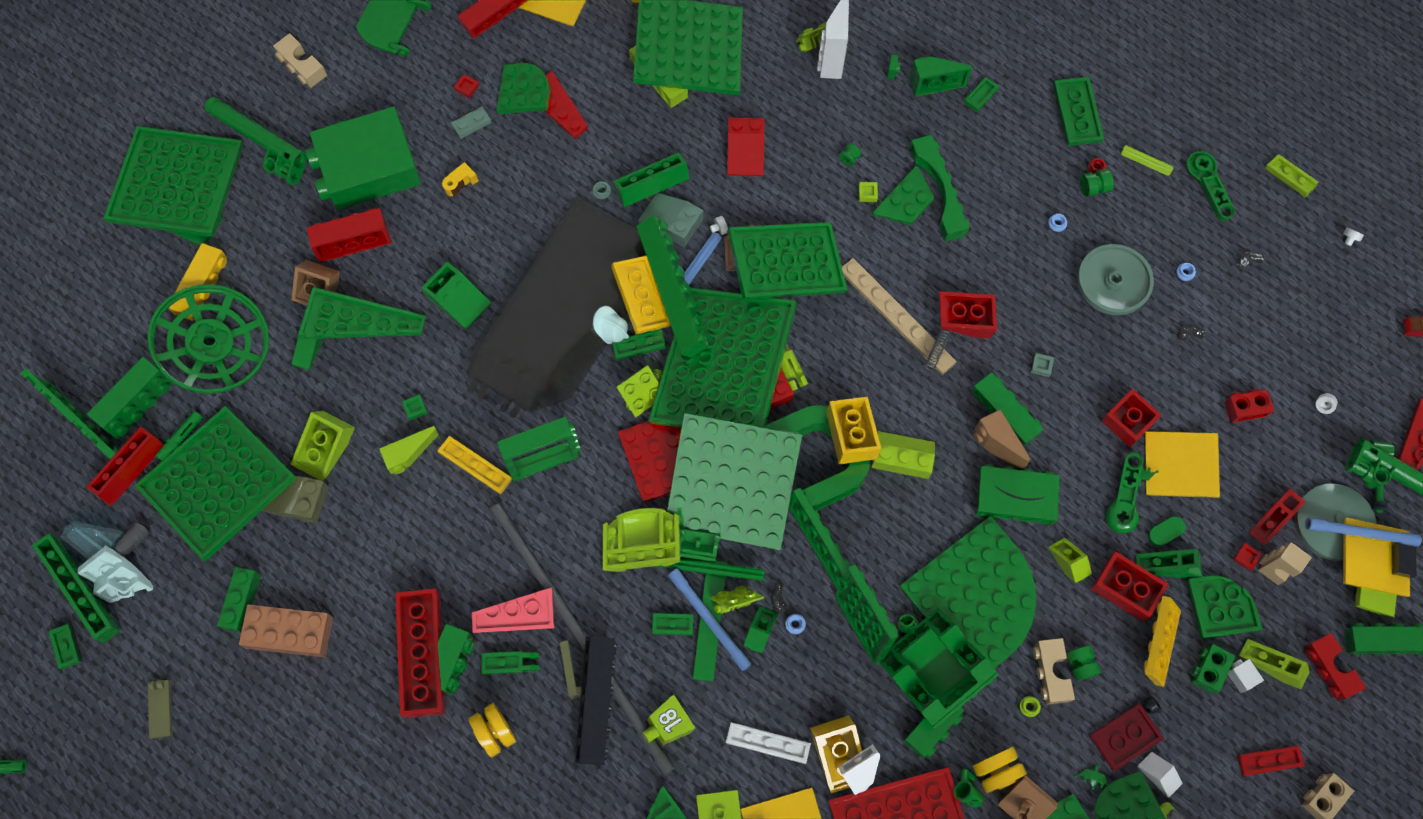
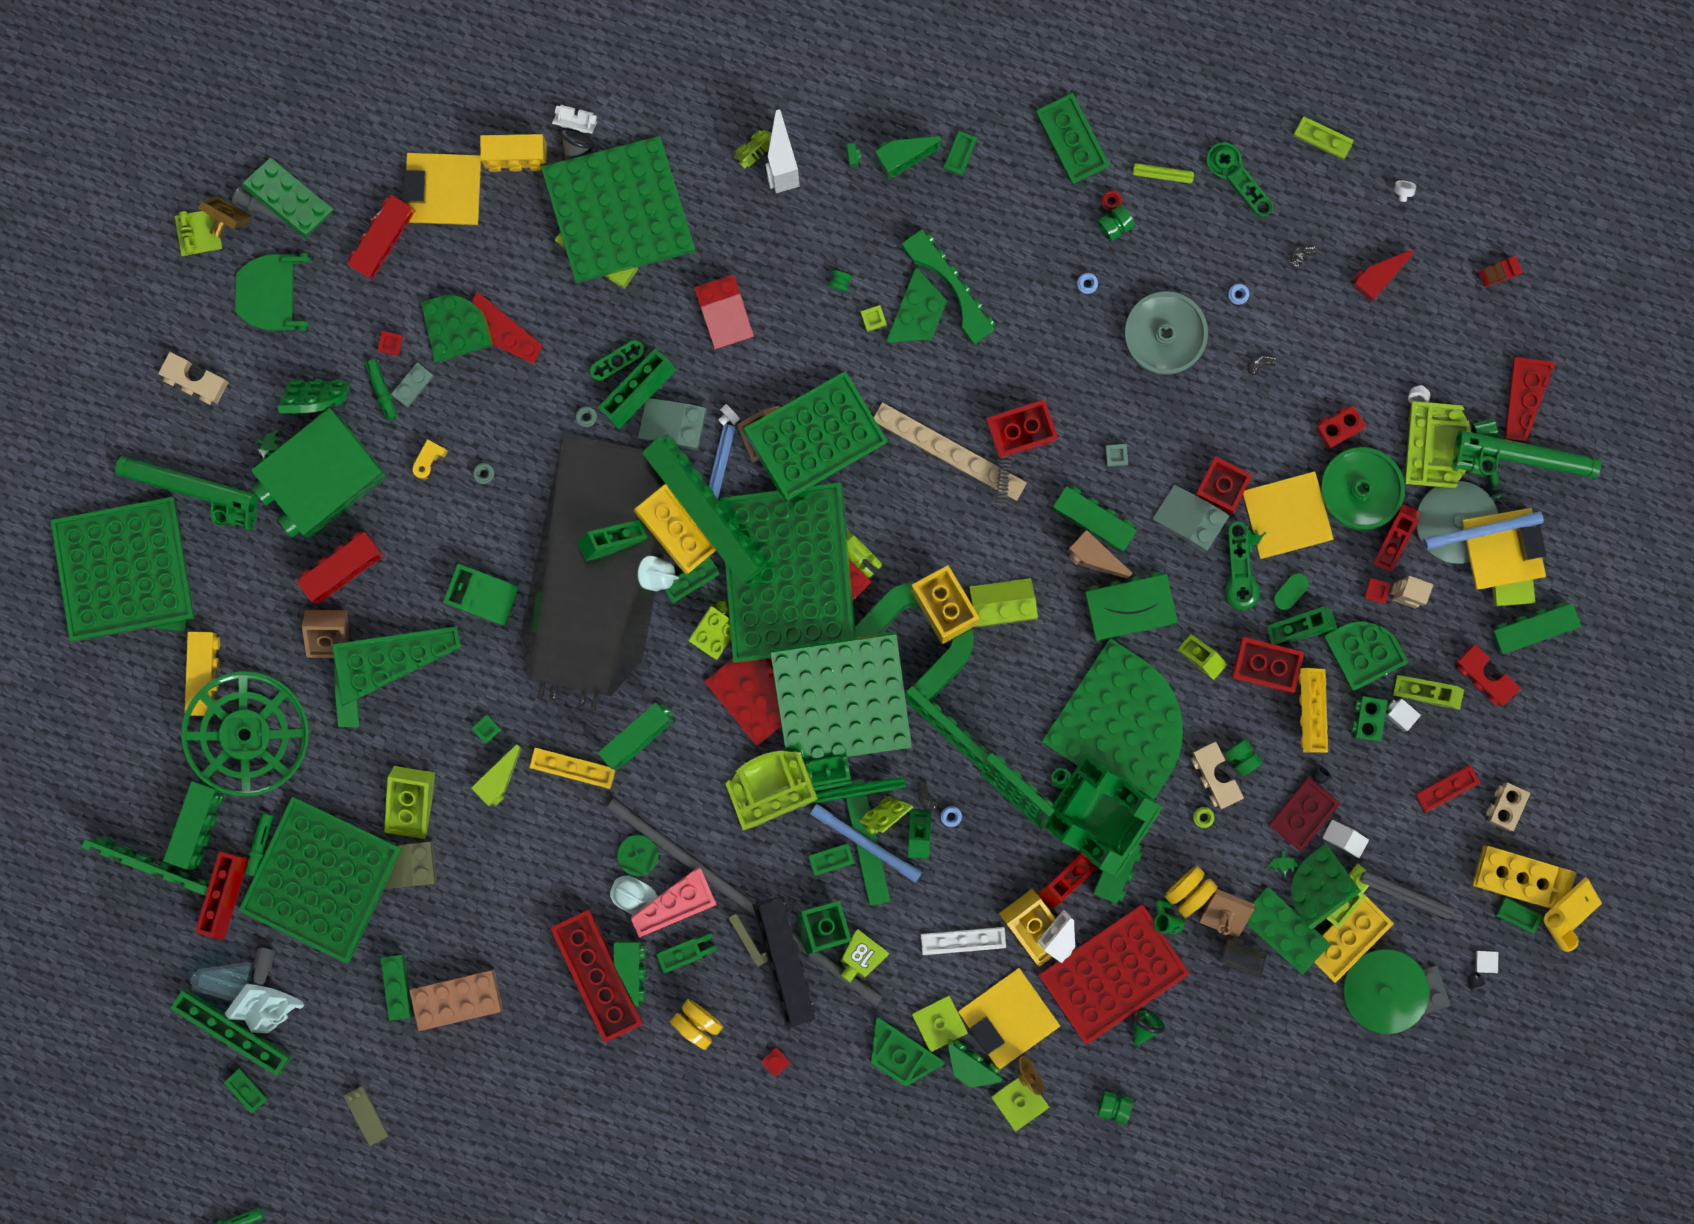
camera: 15 degrees left, 15 degrees up
(390, 98) = (313, 395): none -> green plate
(444, 117) = (379, 385): none -> green pin
(481, 592) = (631, 894): none -> light aqua piece
(499, 201) = (483, 466): none -> sand green plate
(501, 560) = (637, 855): none -> green tile
(552, 795) = (775, 1062): none -> red plate
(581, 281) = (611, 539): none -> green slope
(638, 152) = (618, 352): none -> green beam
(642, 682) = (823, 927): none -> green brick
(885, 719) = (1067, 881): none -> red slope
(1094, 438) = (1191, 518): none -> sand green slope
(1257, 462) = (1362, 488): none -> green dish
(1315, 293) = (1378, 276): none -> red slope
(1330, 445) = (1432, 444): none -> lime slope

